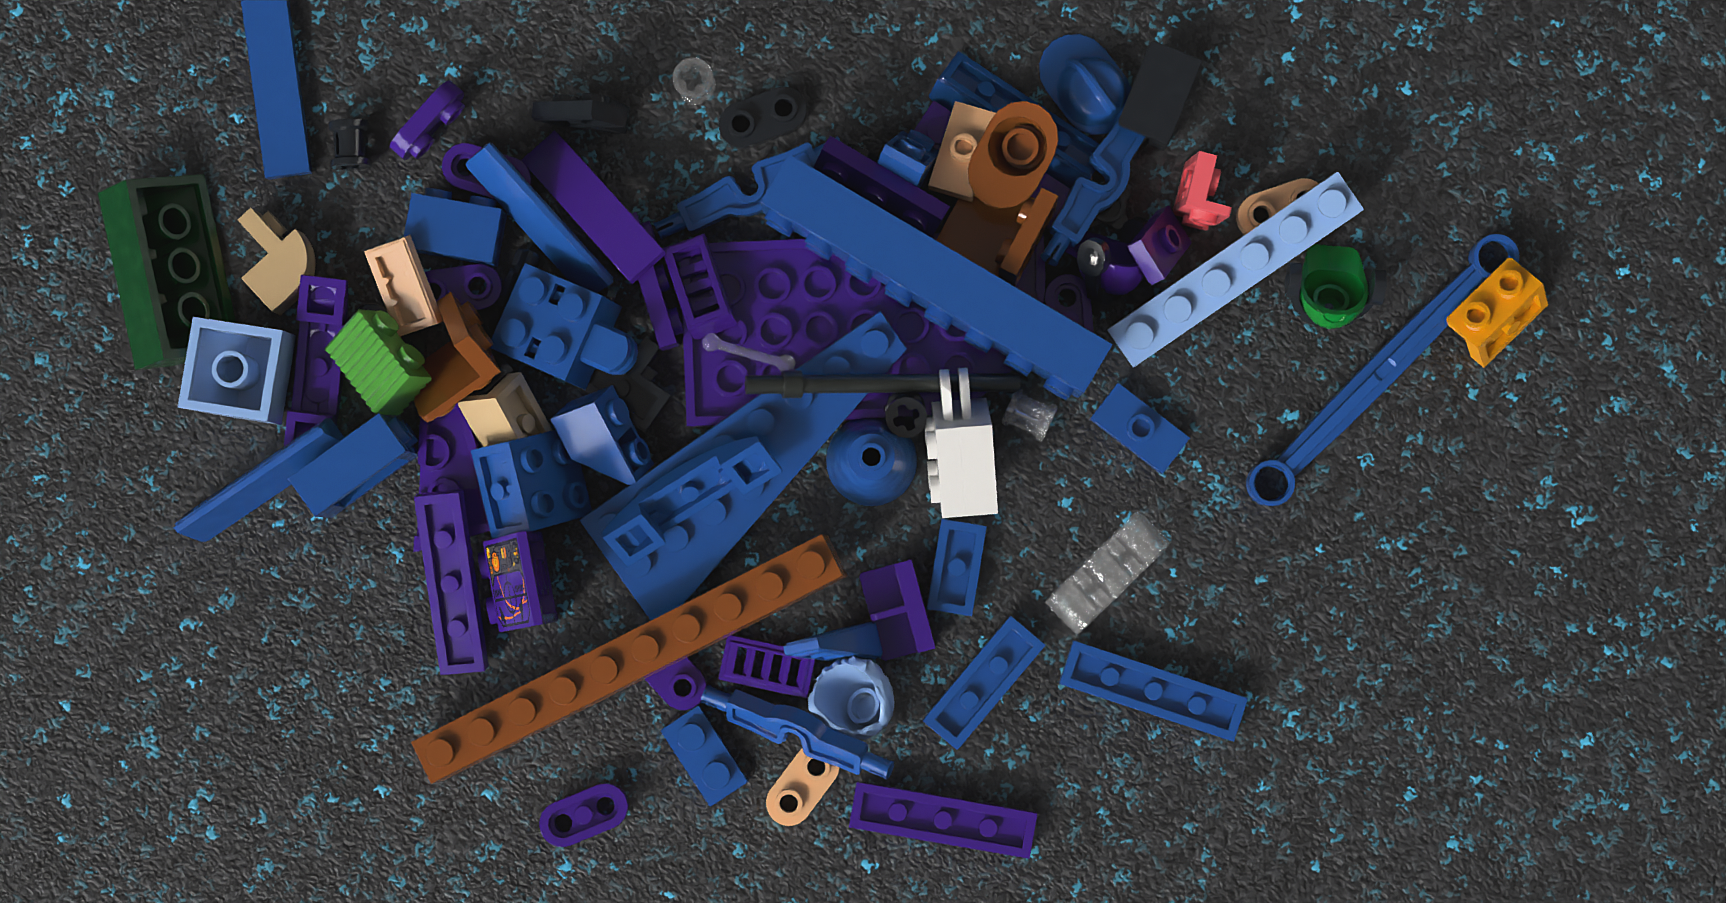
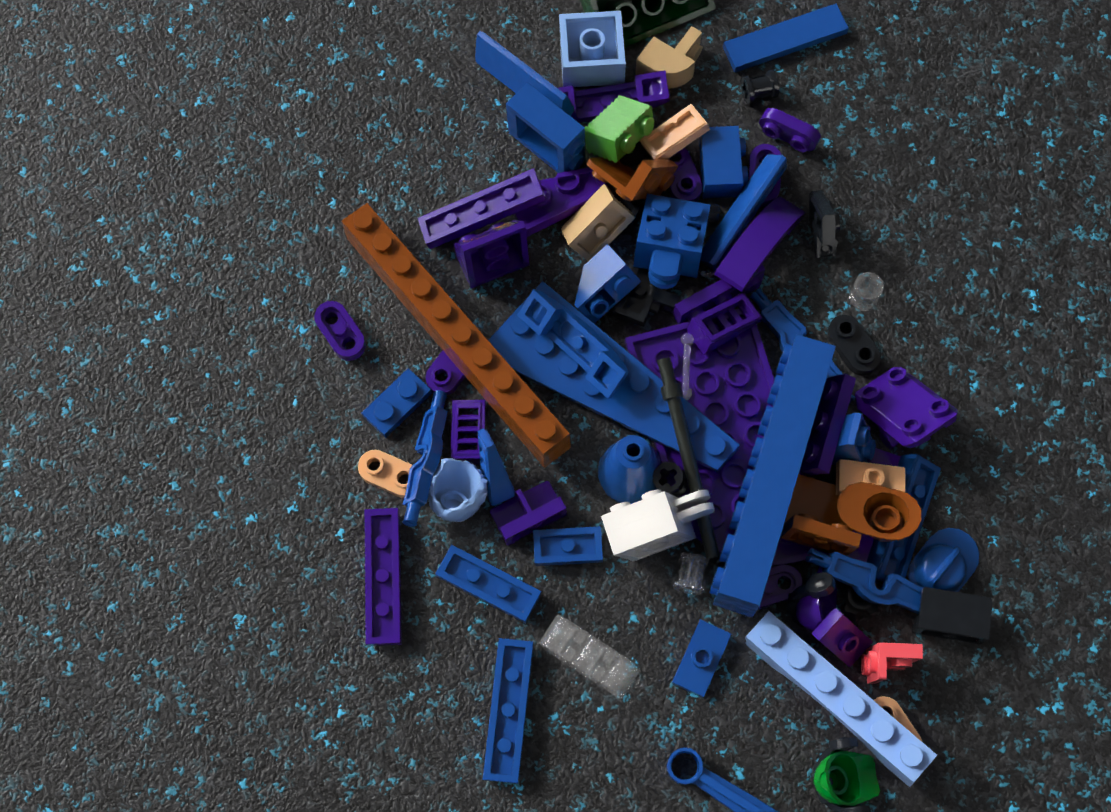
camera: 75 degrees right, 15 degrees down
(530, 484) = (561, 244): blue bracket -> none
(873, 77) = (904, 408): none -> dark purple shield

